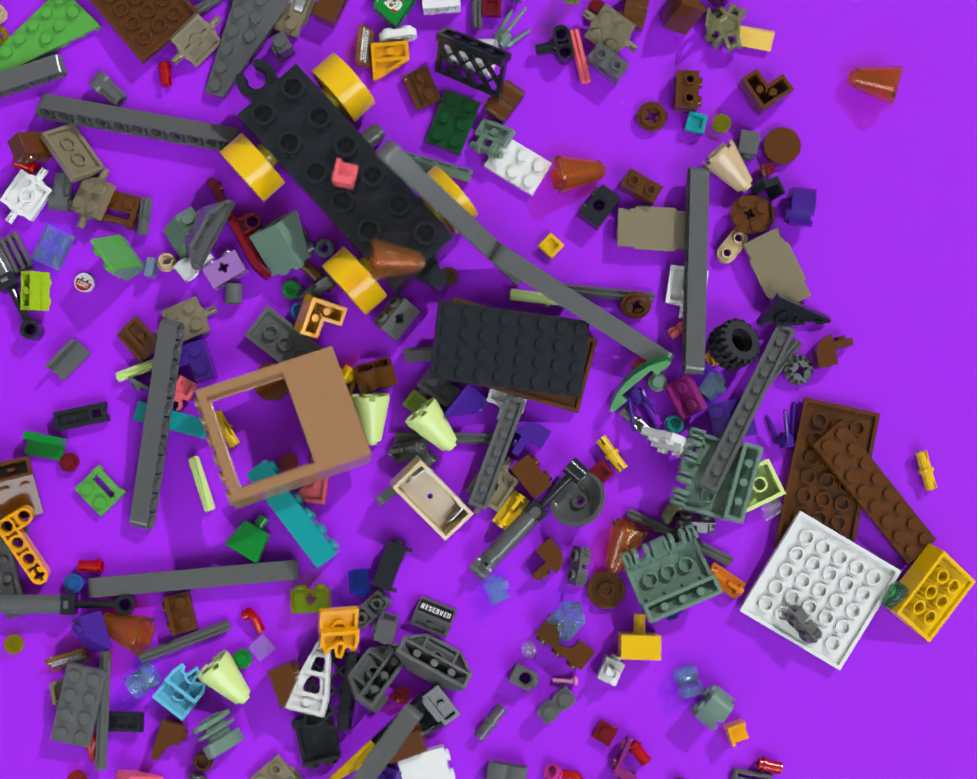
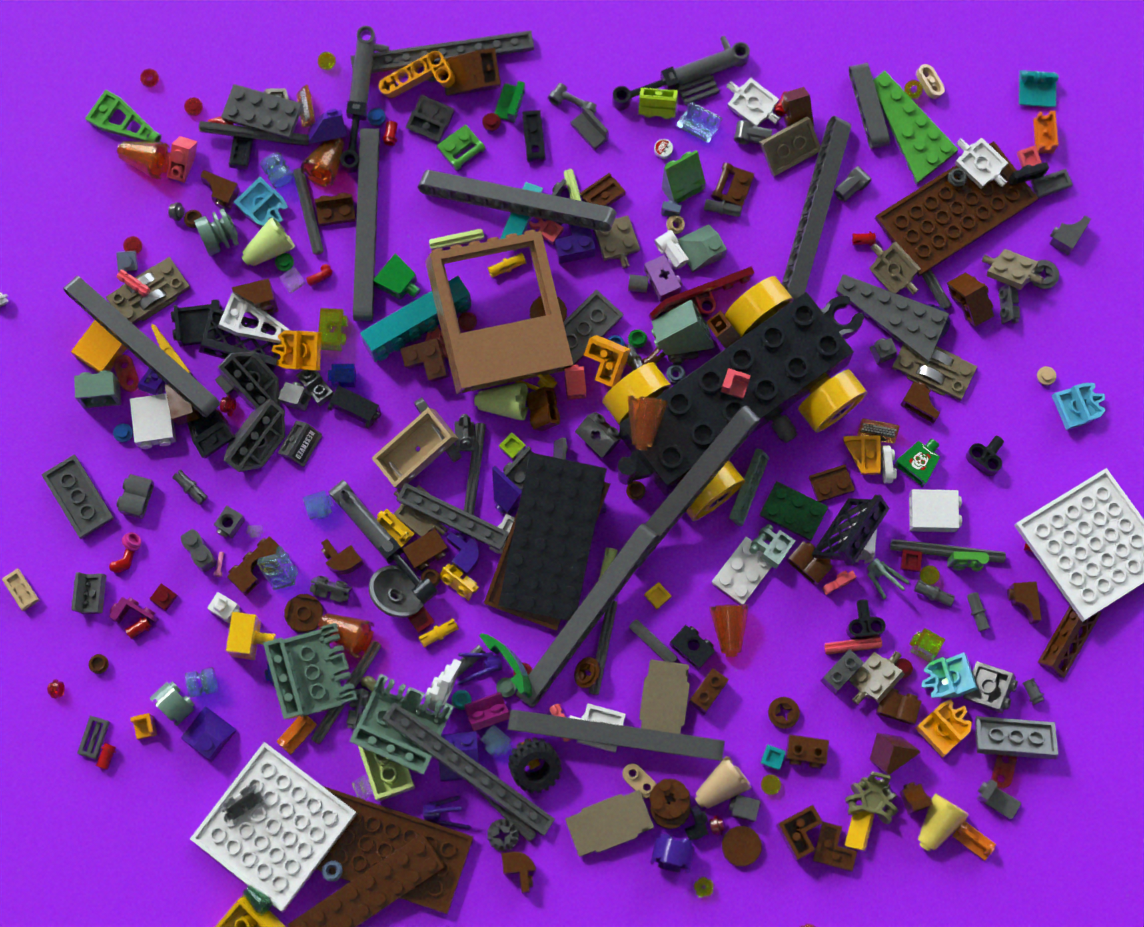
camera: 95 degrees right, 10 degrees down
(33, 394) = (559, 94): none -> dark grey brick
(70, 526) = (430, 118): none -> black slope
(92, 198) = (744, 161): dark tan plate -> none
(206, 230) = (699, 259): dark grey wedge -> none
(279, 200) = (723, 329): none -> reddish brown brick
(329, 497) = (427, 354): none -> reddish brown brick
(345, 345) = (575, 382): none -> coral slope
(432, 425) = (485, 455): yellowish green cone -> none
(517, 69) = (842, 579): none -> coral plate
(555, 468) = (432, 575): none -> reddish brown plate
(563, 433) = (451, 576): none -> yellow hinge
(597, 245) = (652, 641): none -> dark grey axle
(735, 667) = (208, 733): none -> dark purple slope
(778, 63) = (829, 852): none -> reddish brown plate
(787, 311) = (563, 827): black wing -> none
(824, 172) = (704, 892): none -> clear neon green plate
(861, 527) = (325, 871): none -> sand blue plate

